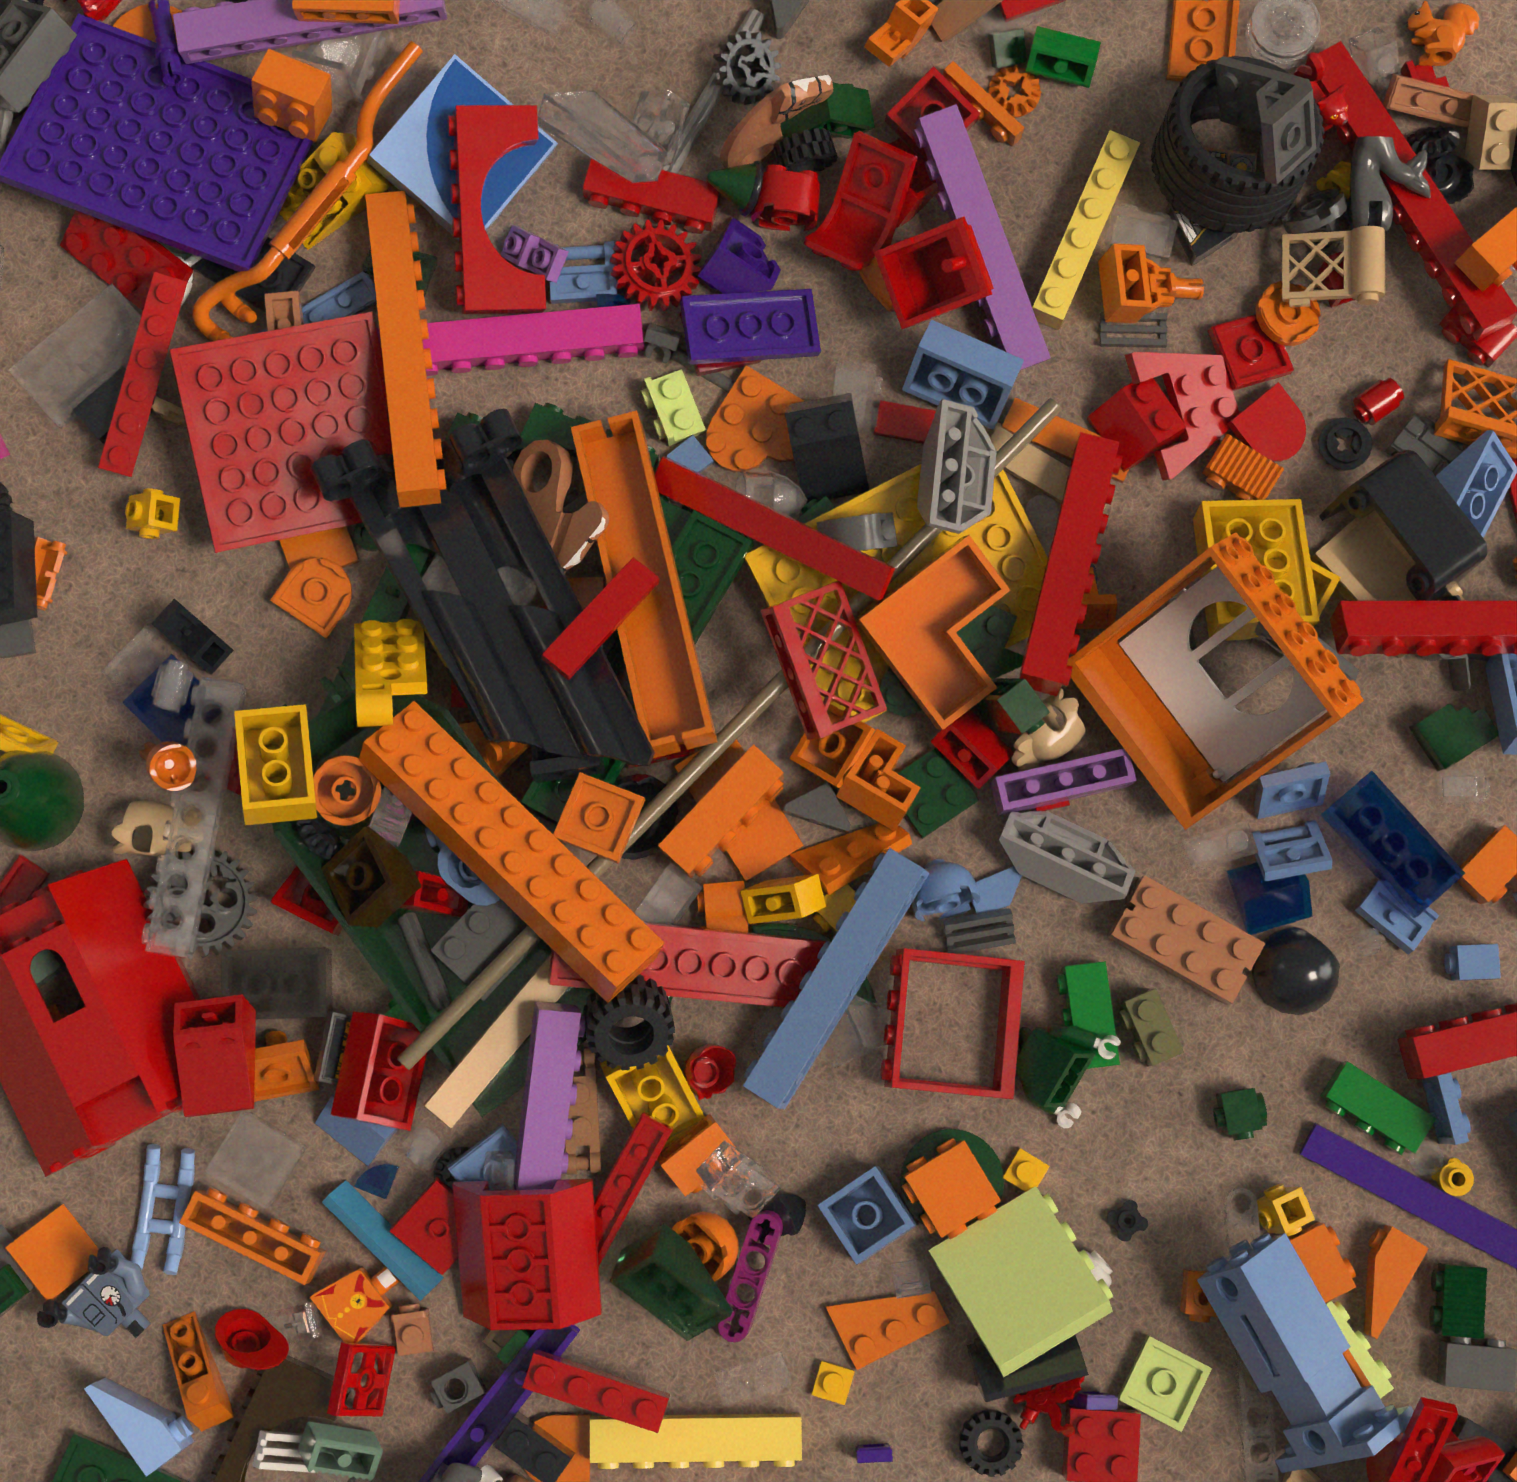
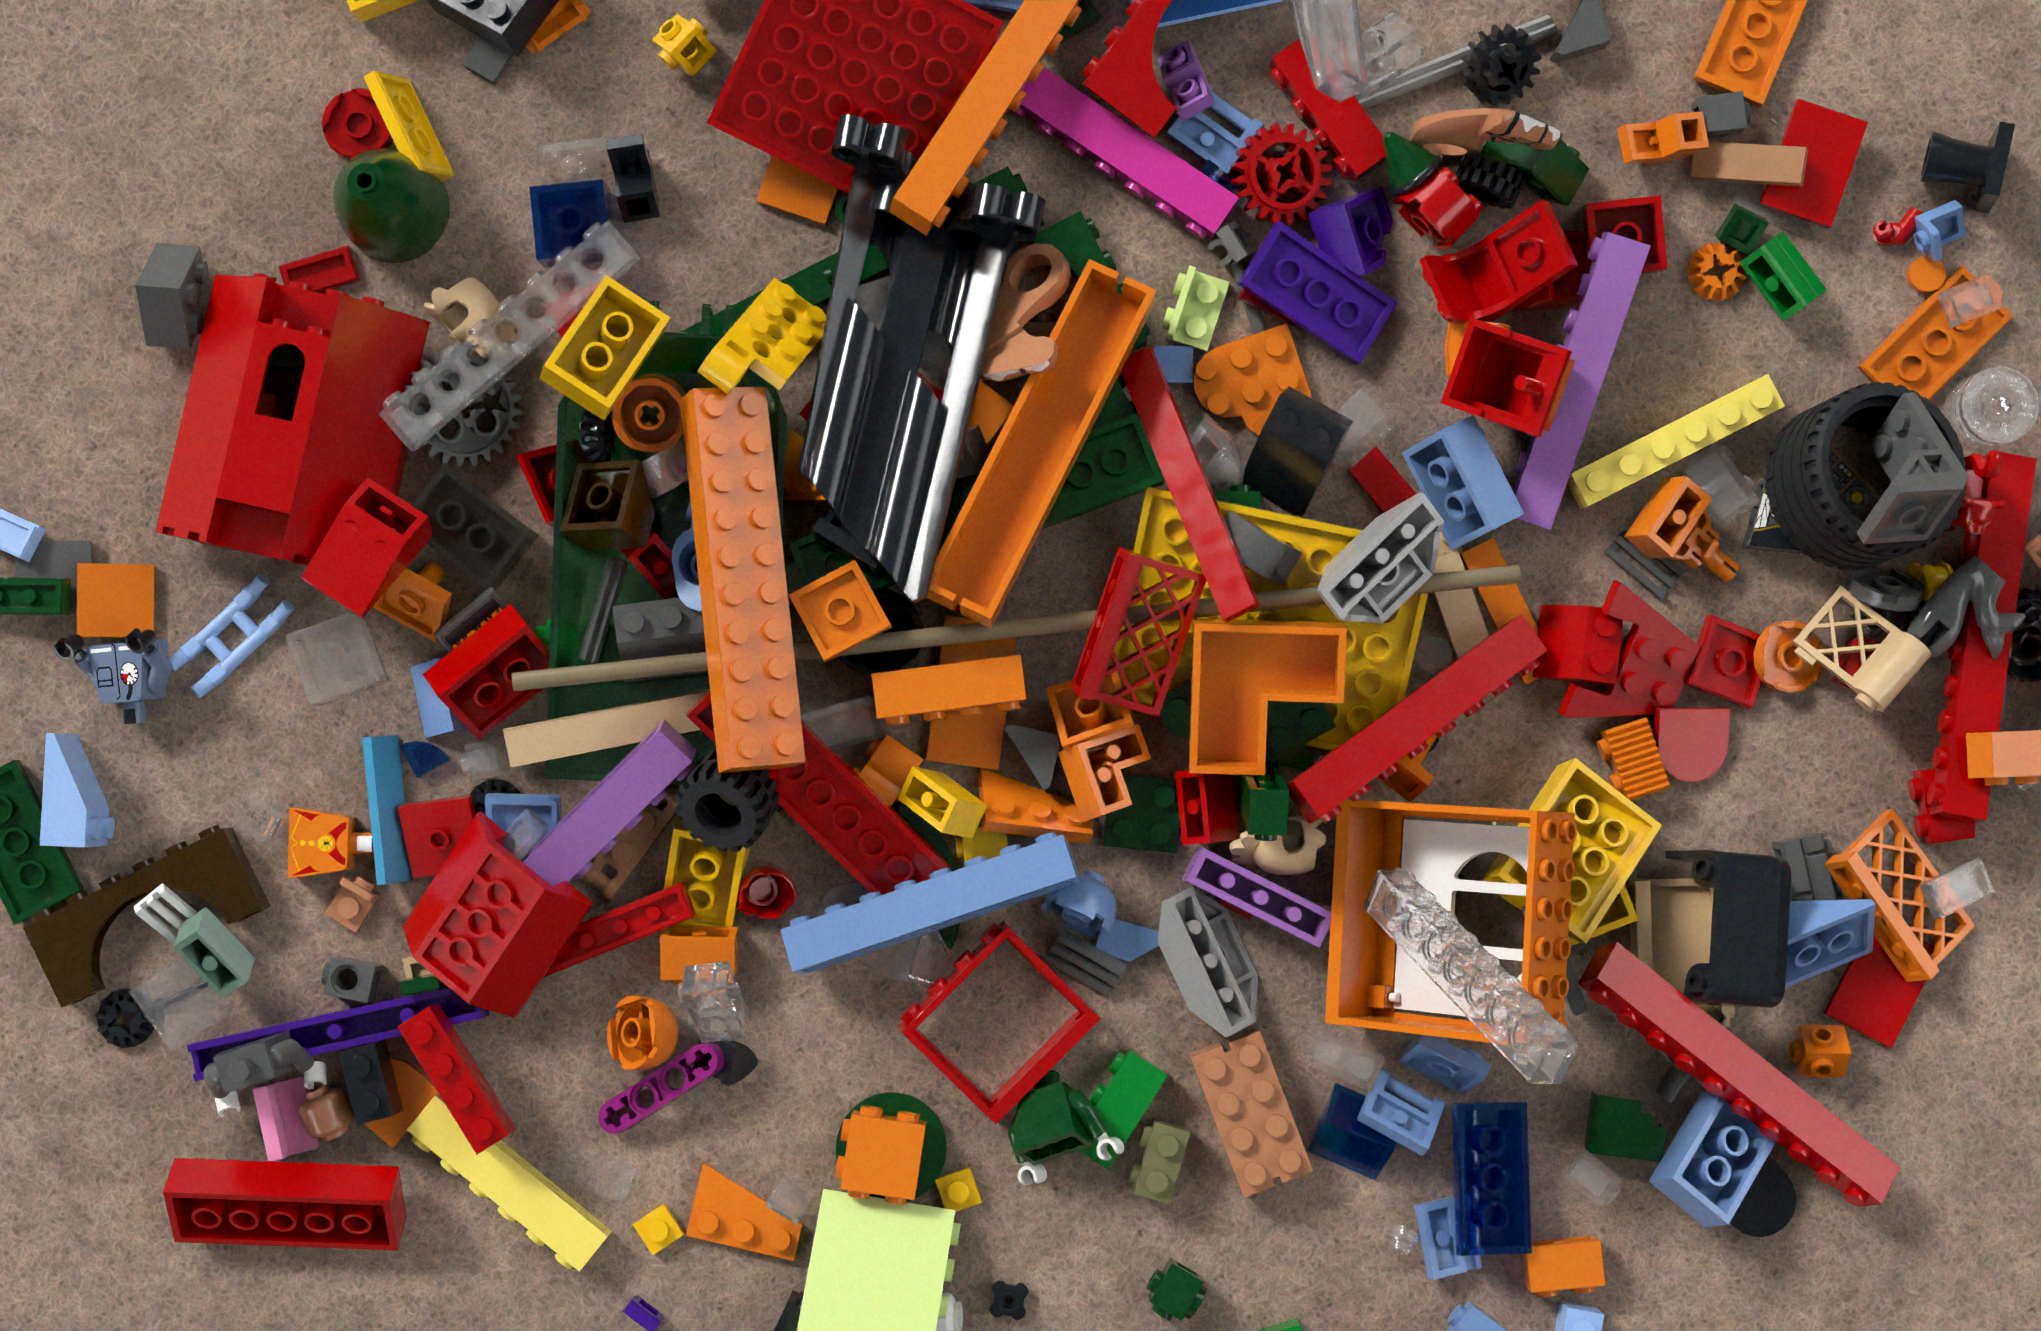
camera: 45 degrees right, 5 degrees up
(169, 764) = (521, 274): orange piece -> none
(171, 685) = (579, 207): clear brick -> none
(197, 1373) = (151, 793): orange slope -> none
(250, 1340) = (214, 803): red piece -> none
(252, 1236) = (284, 719): orange brick -> none
(315, 594) = (765, 224): orange tile -> none
(375, 1382) = (289, 920): red piece -> none
(600, 618) = (976, 445): red tile -> none
(670, 1282) = (591, 1039): clear green slope -> none
(867, 1215) = (797, 1119): medium blue brick -> none
(1003, 124) = (1681, 292): orange plate -> none
(1262, 703) = (1471, 977): none -> clear brick
(1295, 972) = (1321, 1214): black cylinder -> none
(1360, 445) = (1754, 820): black gear -> none
(1377, 401) = (1801, 795): red brick -> none

